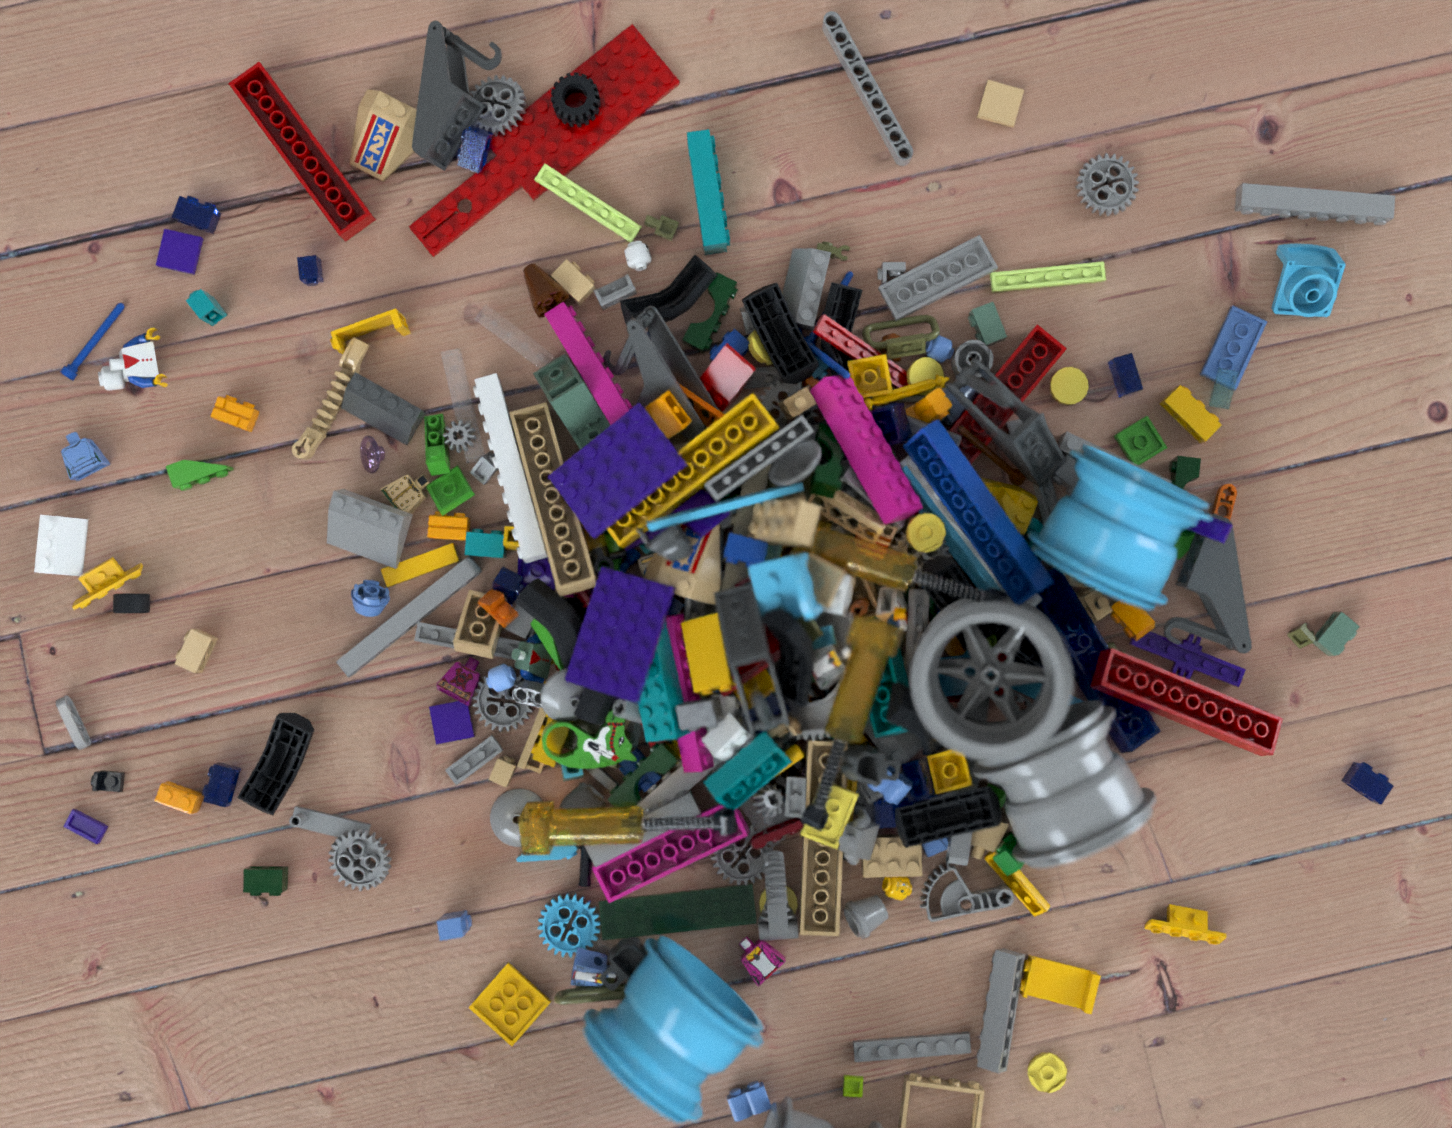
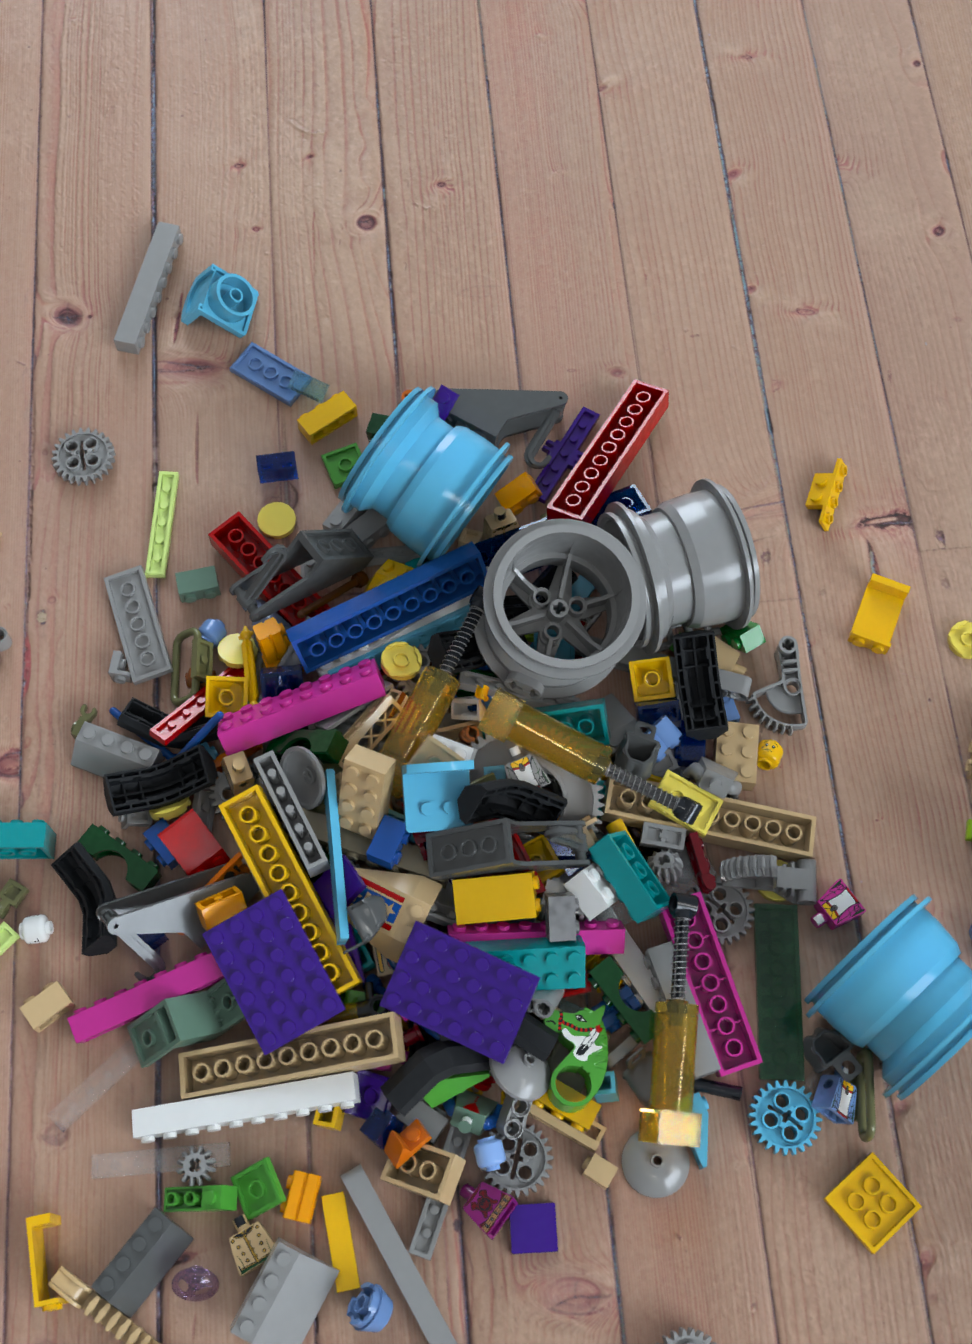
camera: 85 degrees left, 20 degrees down
(454, 925) = (775, 1254): medium blue brick -> none
(474, 760) = (582, 1205): light grey plate -> none
(484, 468) = (240, 1142): light grey bracket -> none
(485, 544) = (330, 1153): teal brick -> none
(543, 290) = (48, 1041): reddish brown cone -> none
(615, 291) = (70, 960): light grey hinge -> none
(865, 915) = (796, 789): light grey piece -> none
(905, 715) = (590, 695): black piece -> none
(911, 1046) = (937, 767): light grey plate -> none
(968, 350) = (226, 606): light grey brick -> none
(1000, 1010) = (903, 671): light grey brick -> none
(1021, 888) = (791, 626): yellow brick -> none
(1301, 636) = (558, 356): olive tile -> none
(1335, 634) = (560, 329): sand green brick -> none
(1368, 783) = (703, 323): clear blue brick -> none

